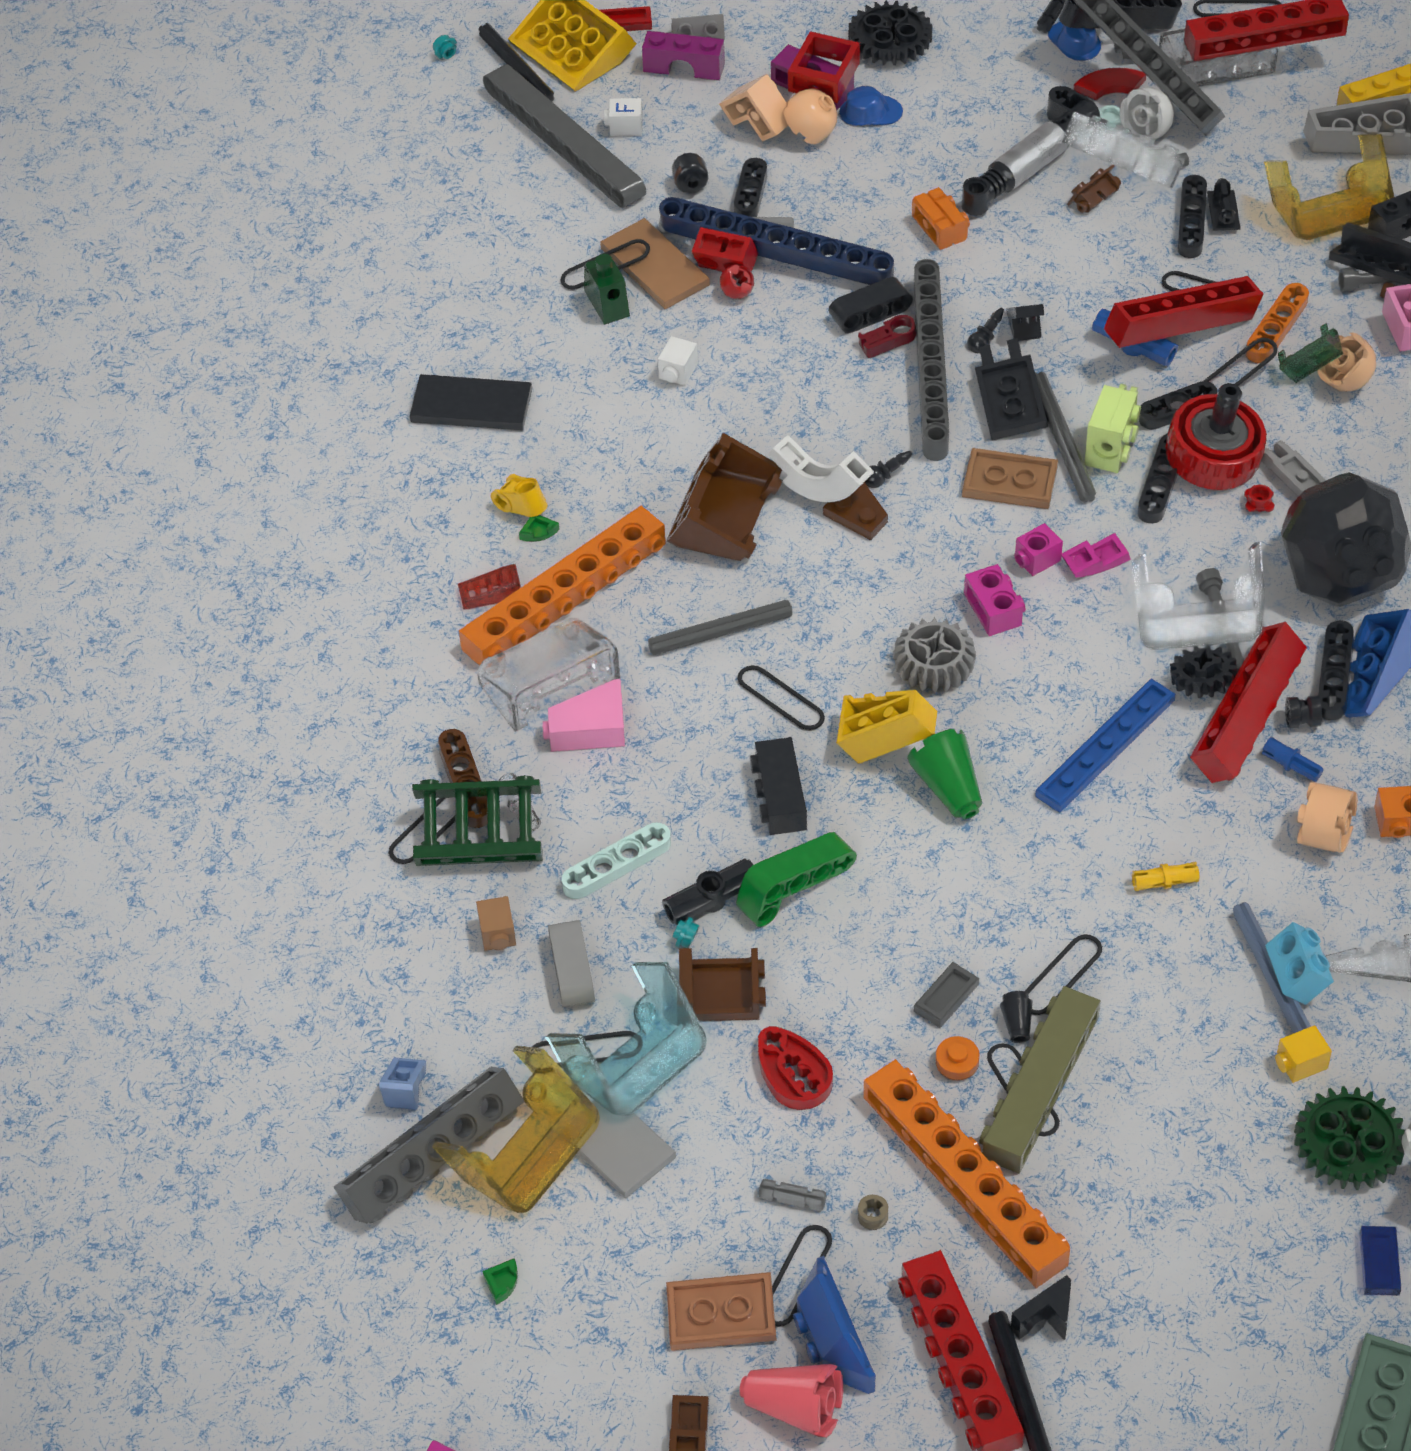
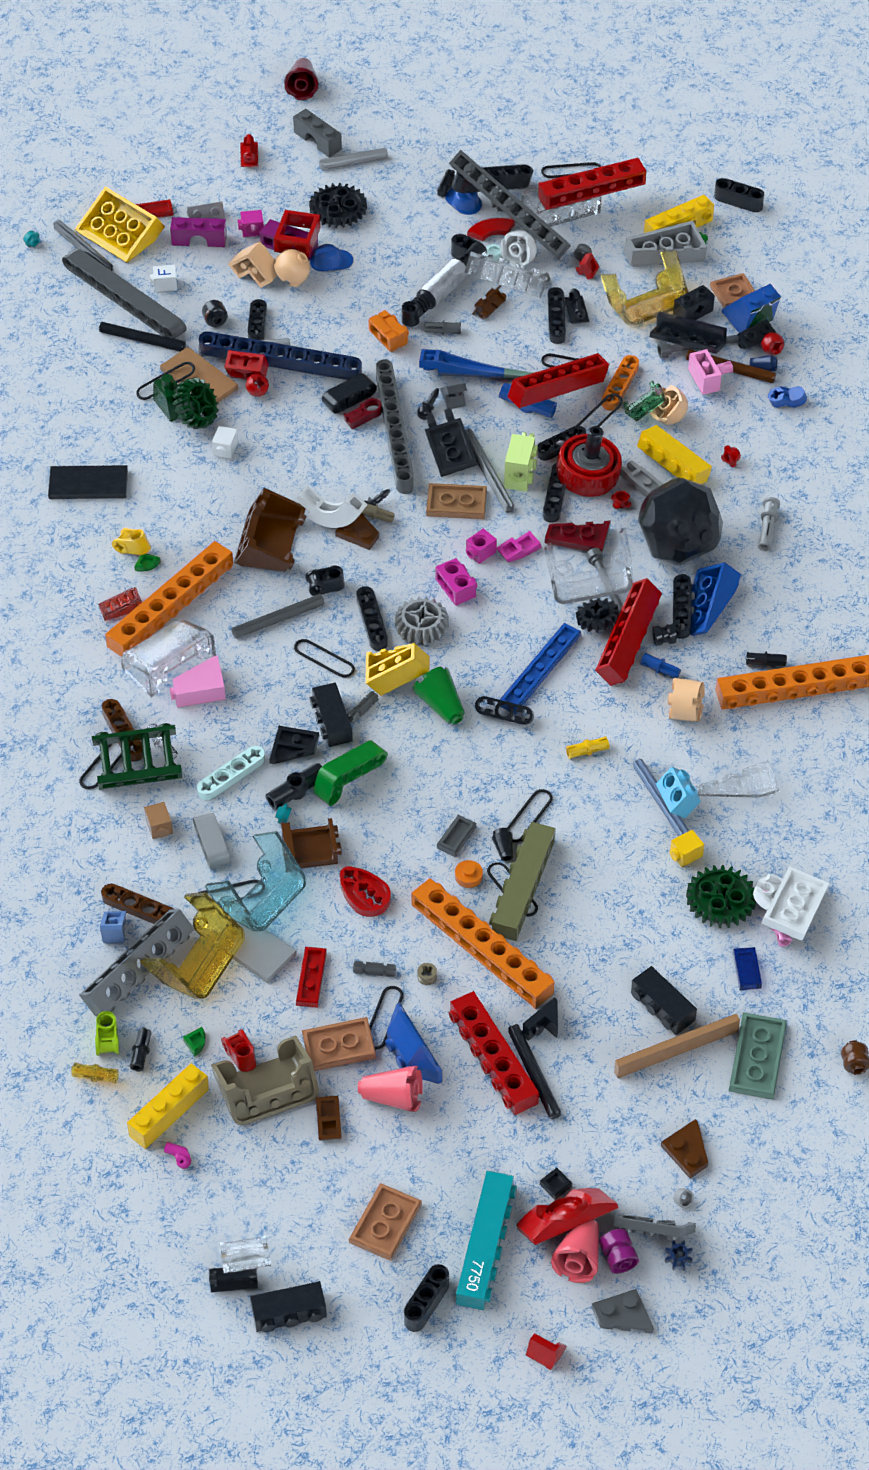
camera: 10 degrees left, 0 degrees up
(340, 1314) = (95, 1073): none -> clear yellow pin
(366, 1260) = (106, 1037): none -> lime piece
(415, 1284) = (140, 1049): none -> black axle
(442, 1382) = (168, 1106): none -> yellow brick
(444, 1058) = (135, 909): none -> reddish brown beam
(567, 1305) = (240, 1051): none -> red piece
(581, 198) = (141, 336): none -> black axle
(601, 1367) = (270, 1085): none -> dark tan windscreen
(635, 303) = (192, 405): none -> dark green gear
(693, 1196) = (311, 977): none -> red tile
(715, 826) = (293, 744): none -> black wing
(760, 48) = (251, 223): none -> dark pink brick
(800, 579) = (327, 580): none -> black piece
(828, 778) = (362, 706): none -> dark grey axle
(860, 644) = (374, 617): none -> black beam
(884, 483) = (375, 512): none -> dark tan axle
(1019, 805) = (491, 701): none -> black beam
(1021, 220) = (443, 327): none -> dark grey axle
(1031, 277) = (454, 365): none -> blue plate
(1188, 548) = (578, 536): none -> dark red wing
(1235, 127) = (581, 248): none -> dark grey bush
(1240, 1299) = (663, 1000): none -> black brick
(1247, 148) = (588, 266): none -> red tile
(1254, 1377) = (676, 1045): none -> medium nougat tile
(1346, 438) = (673, 455): none -> yellow brick

